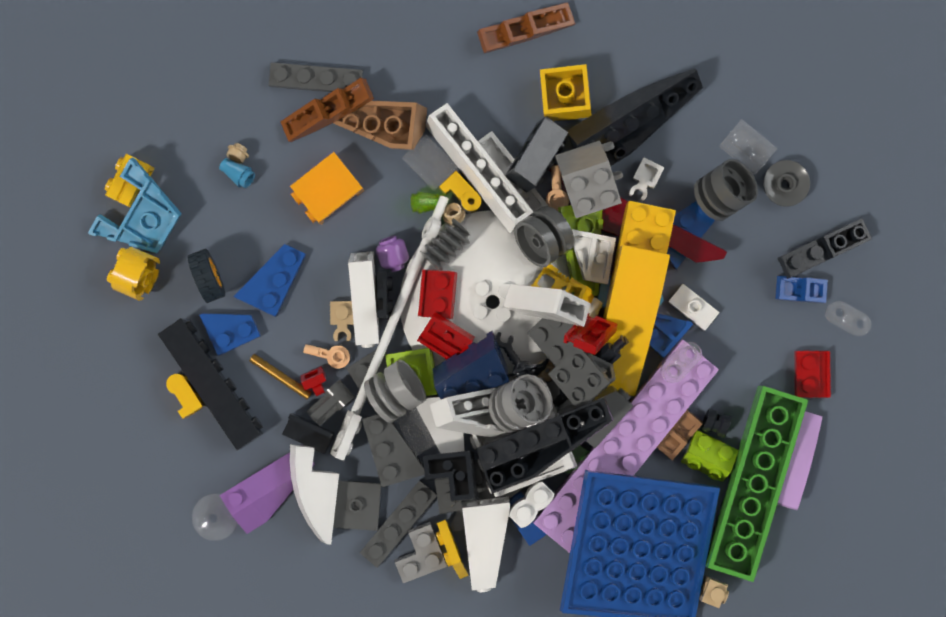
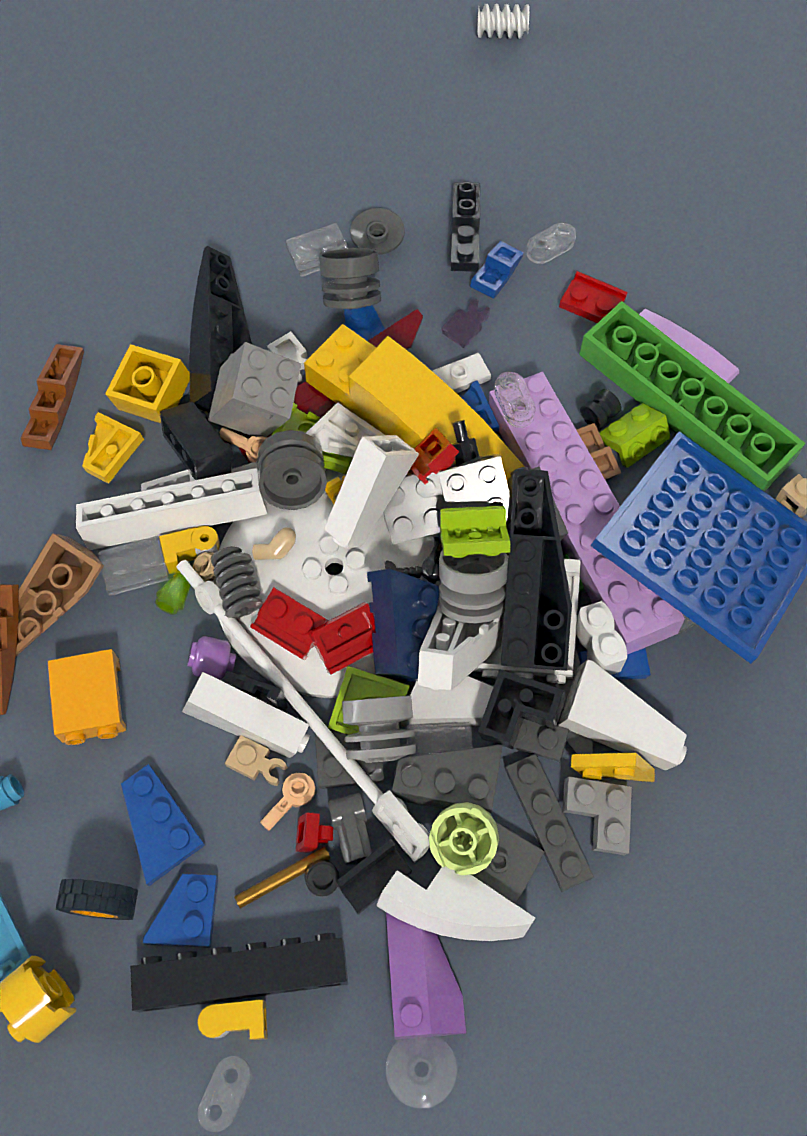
camera: 60 degrees left, 20 degrees down
(143, 411) = (224, 1094): none -> clear plate
(291, 401) = (321, 878): none -> black tile
(354, 479) = (464, 838): none -> yellowish green cylinder
(485, 257) = (277, 548): none -> tan arm
(507, 93) = (110, 447): none -> yellow wing
(548, 390) = (474, 531): none -> lime bracket
(738, 290) = (465, 326): none -> clear purple plate

